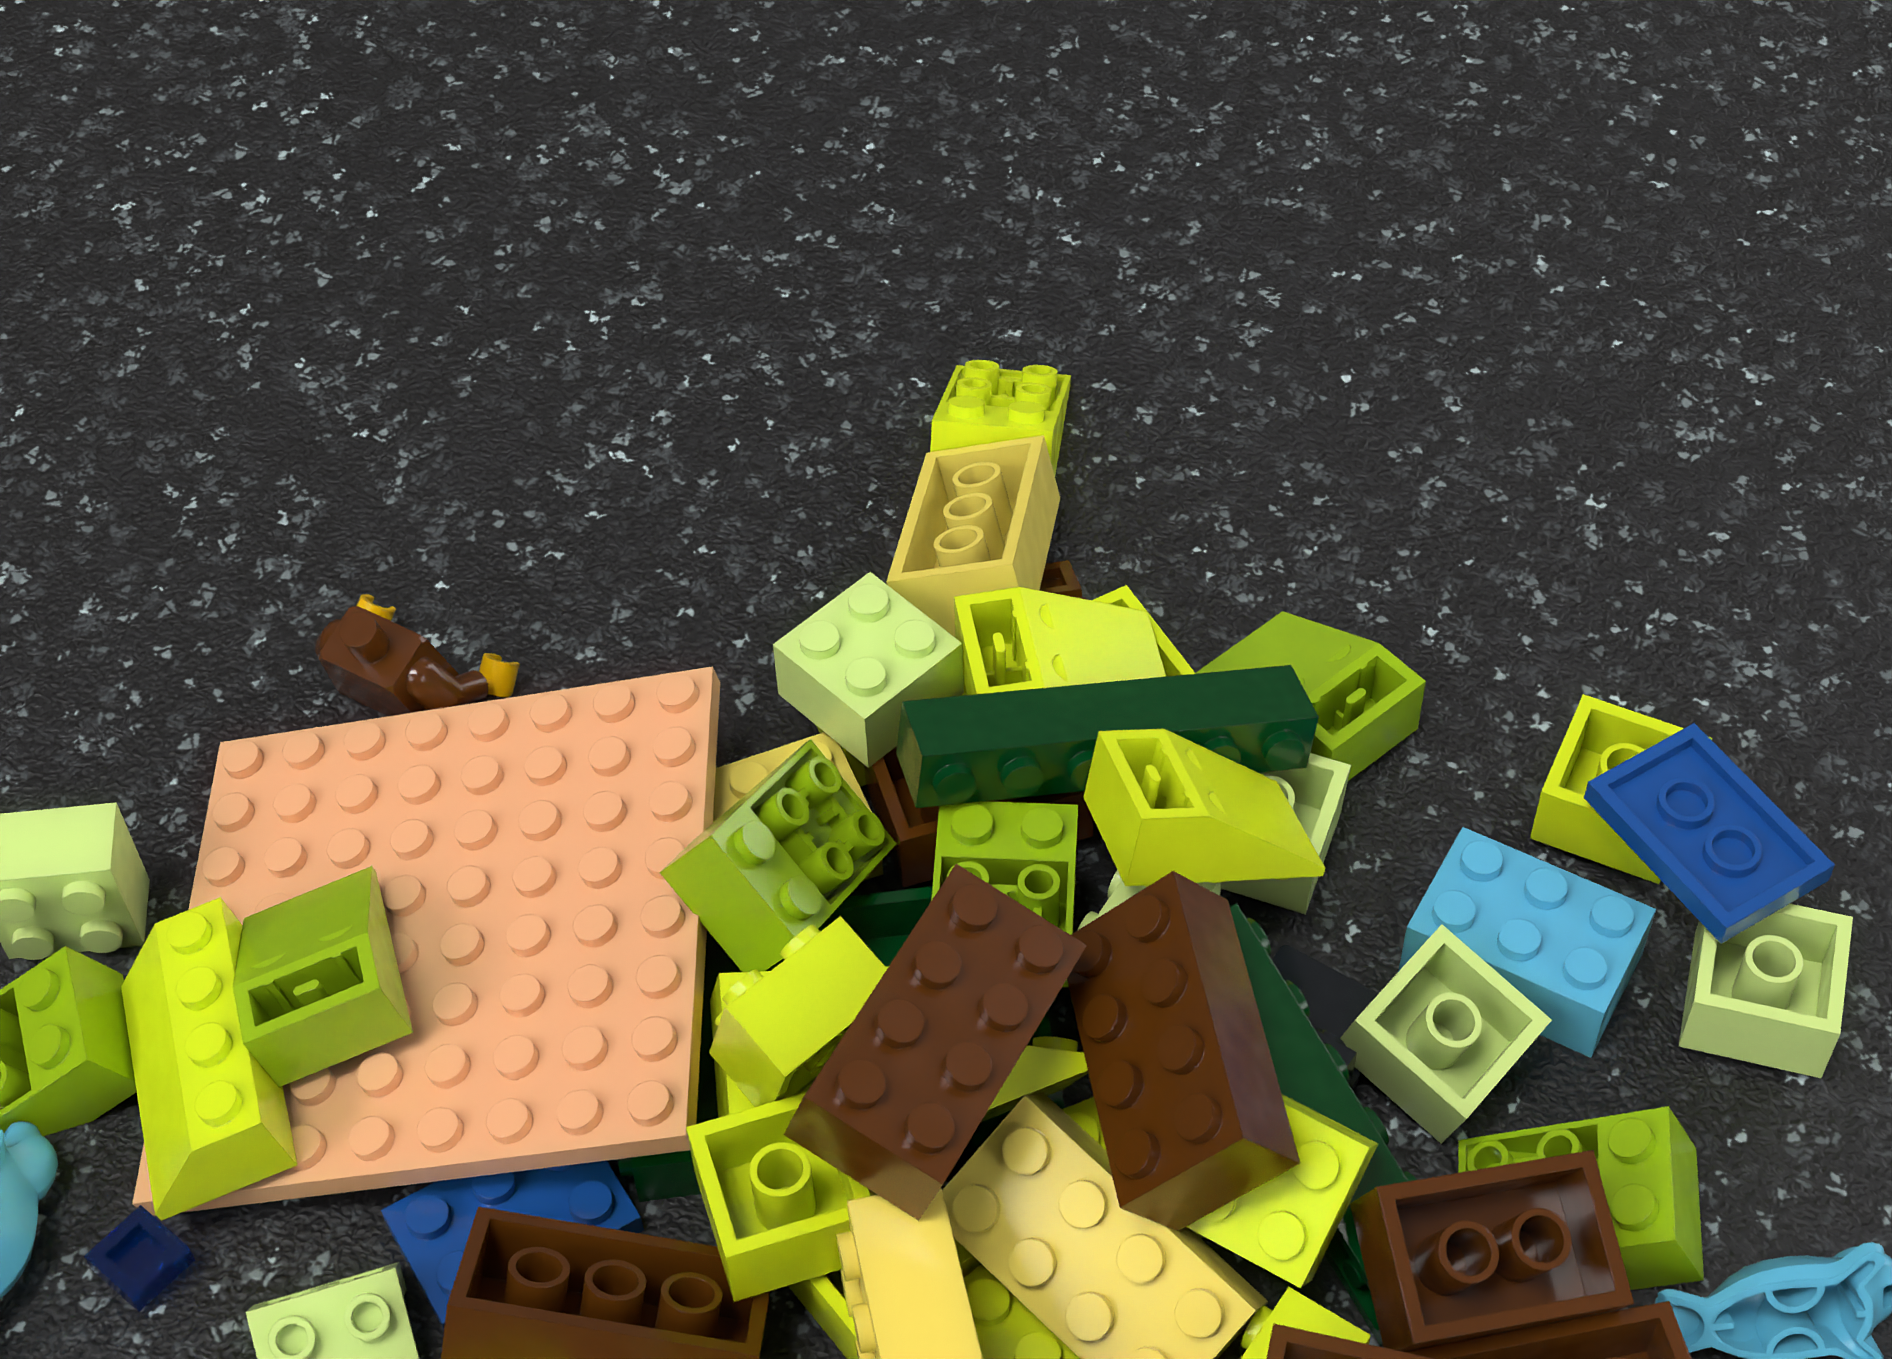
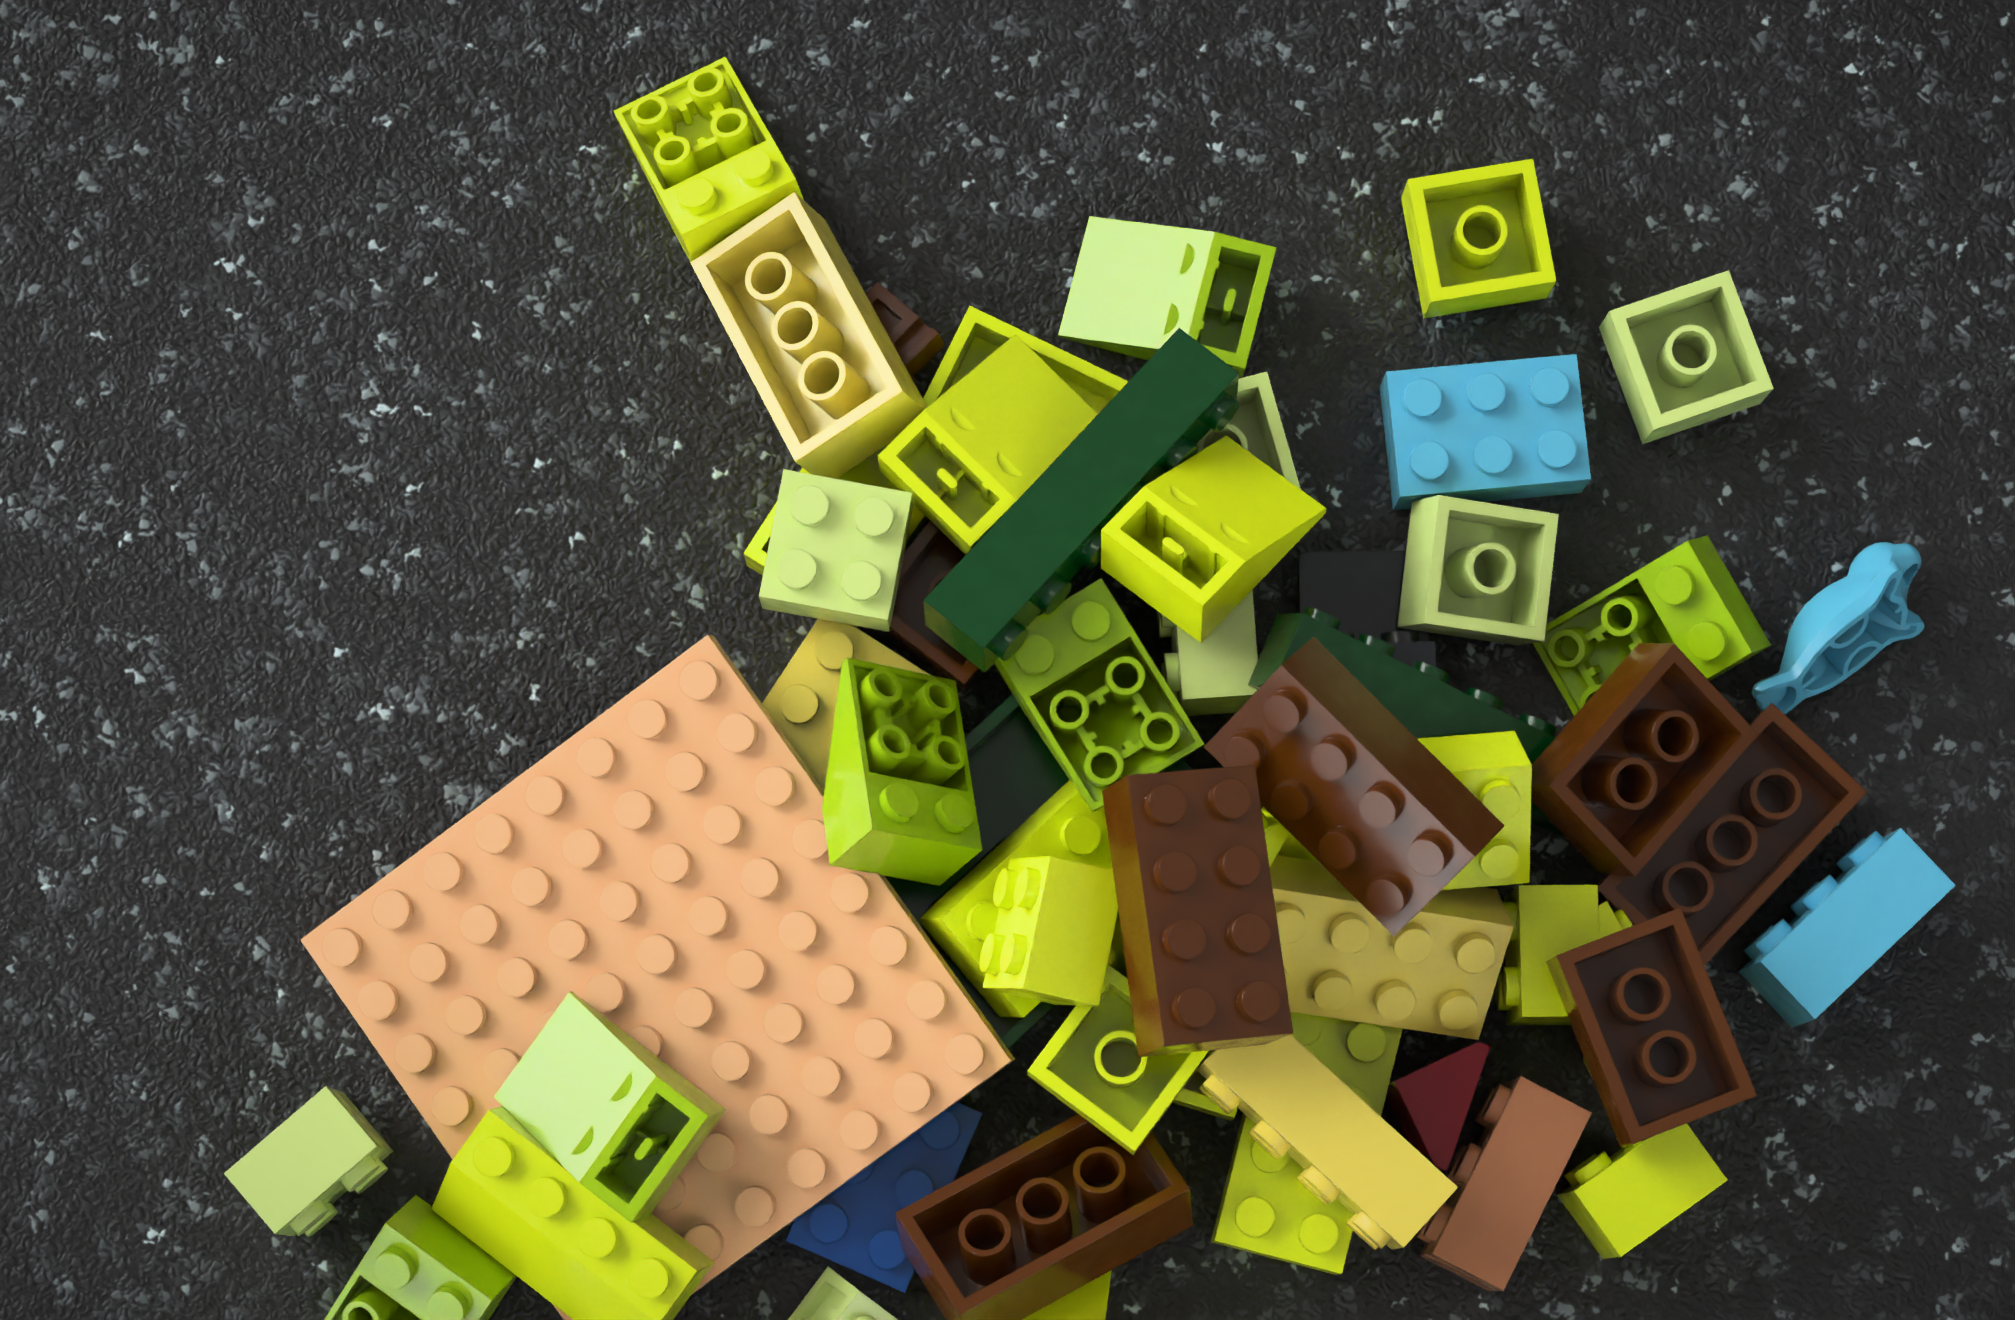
camera: 40 degrees left, 30 degrees up
(399, 668) = (402, 783): reddish brown torso -> none
(1708, 832) = (1586, 270): blue plate -> none

